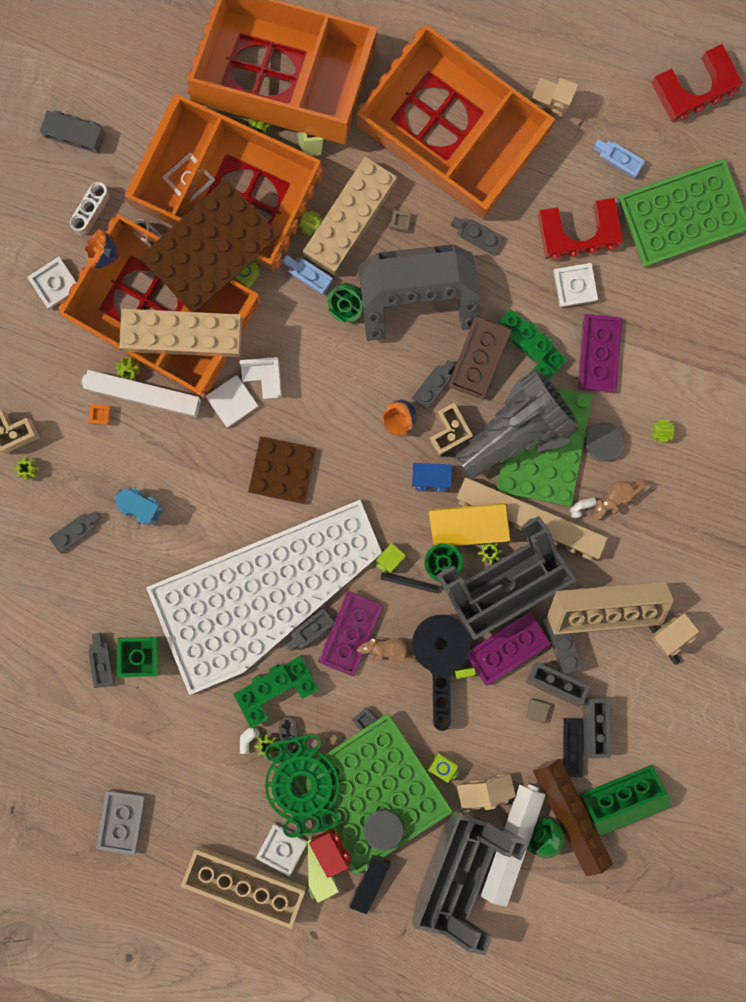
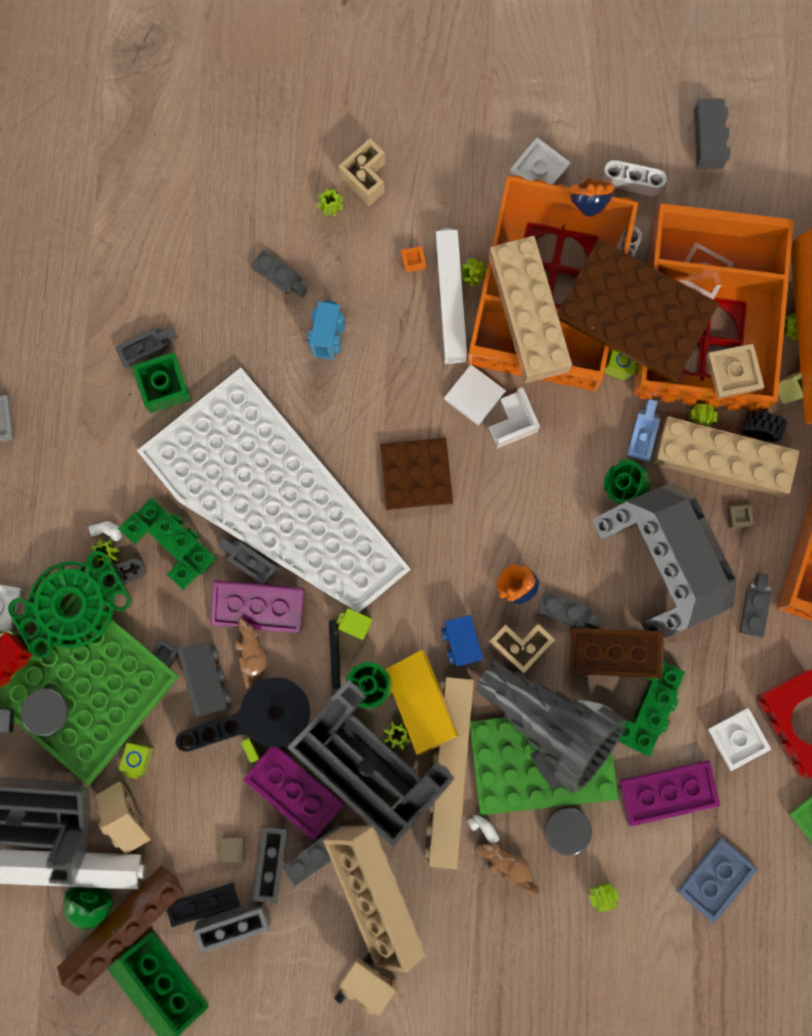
camera: 75 degrees right, 5 degrees down
(286, 185) = (735, 371): none -> tan plate
(334, 176) = (764, 425): none -> black tyre
(397, 692) = (204, 678): none -> dark grey slope
(676, 339) = (716, 879): none -> sand blue tile

